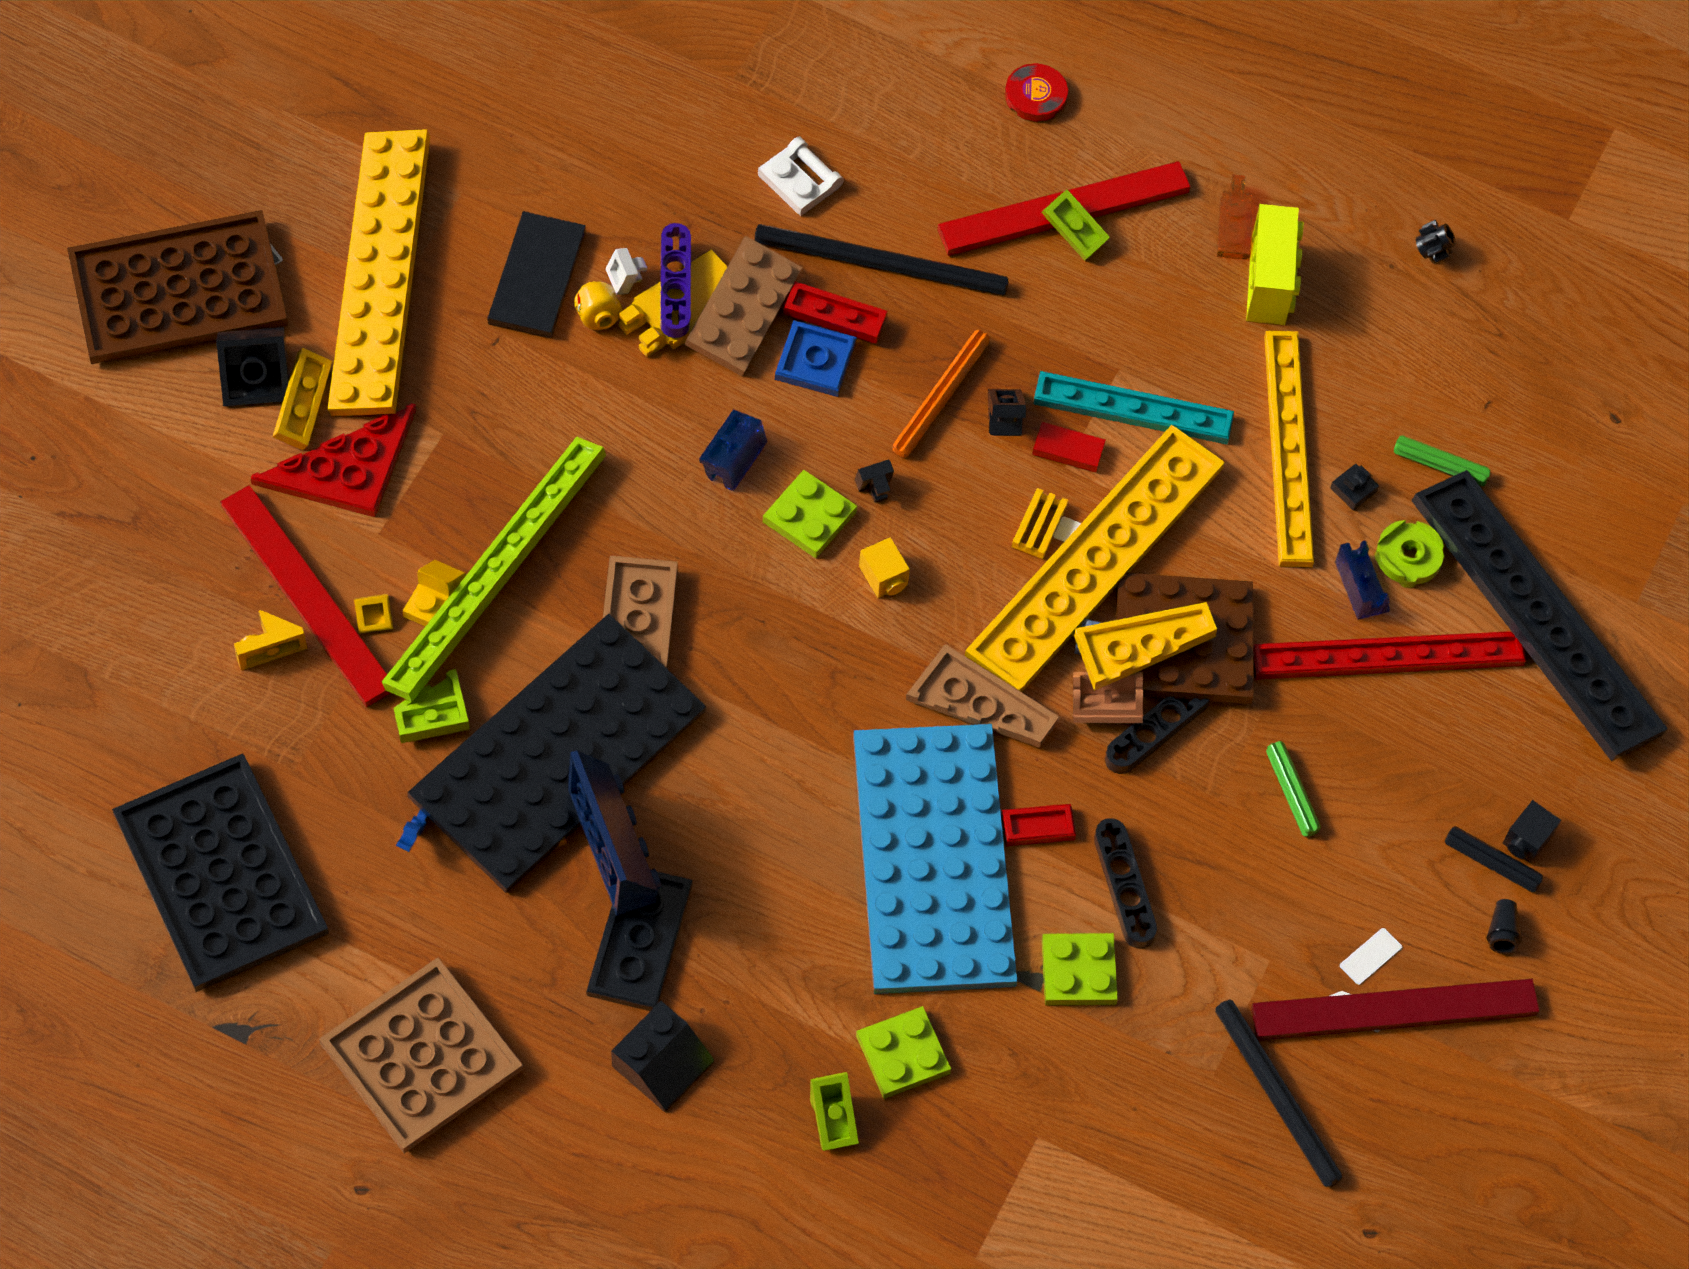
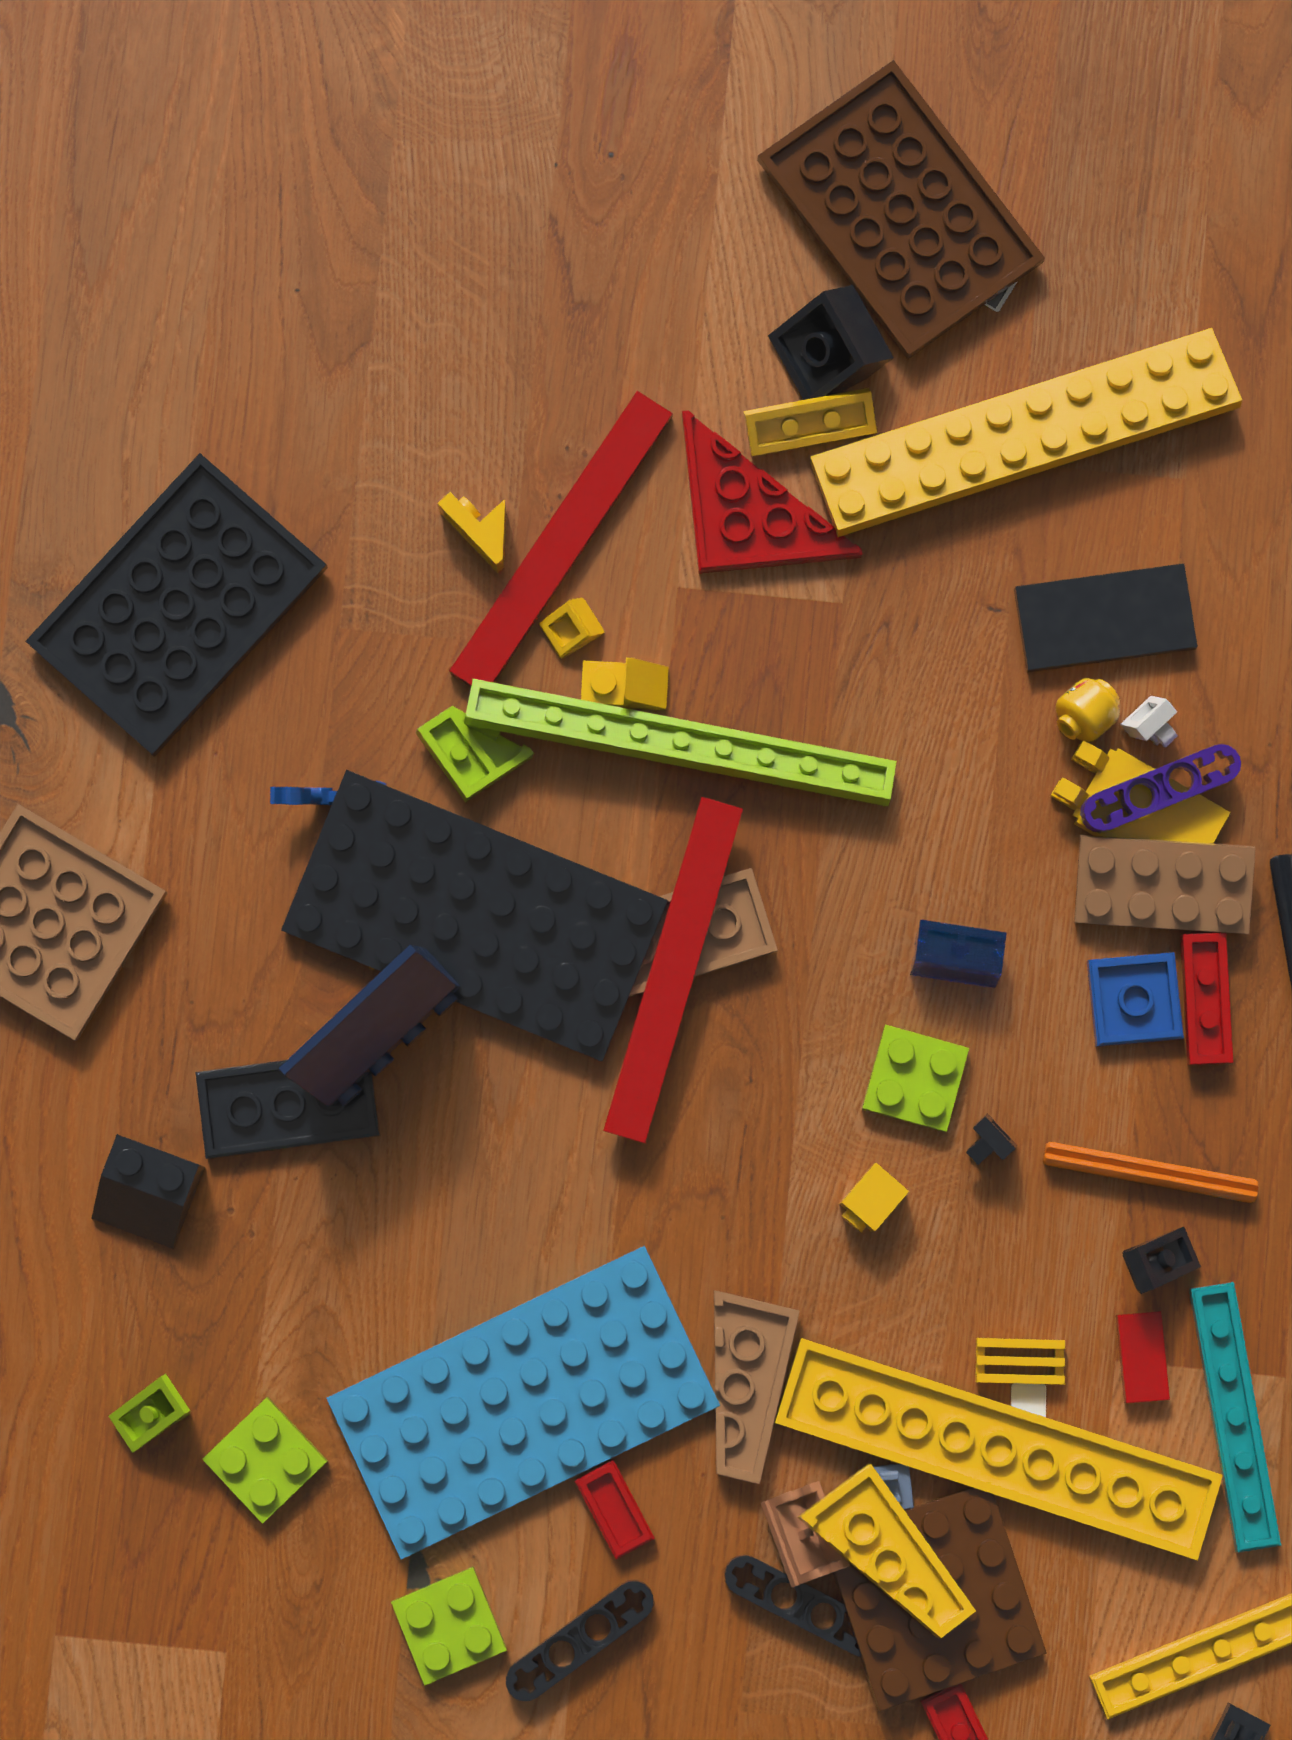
camera: 70 degrees right, 20 degrees up
(662, 631) = (673, 970): none -> red tile

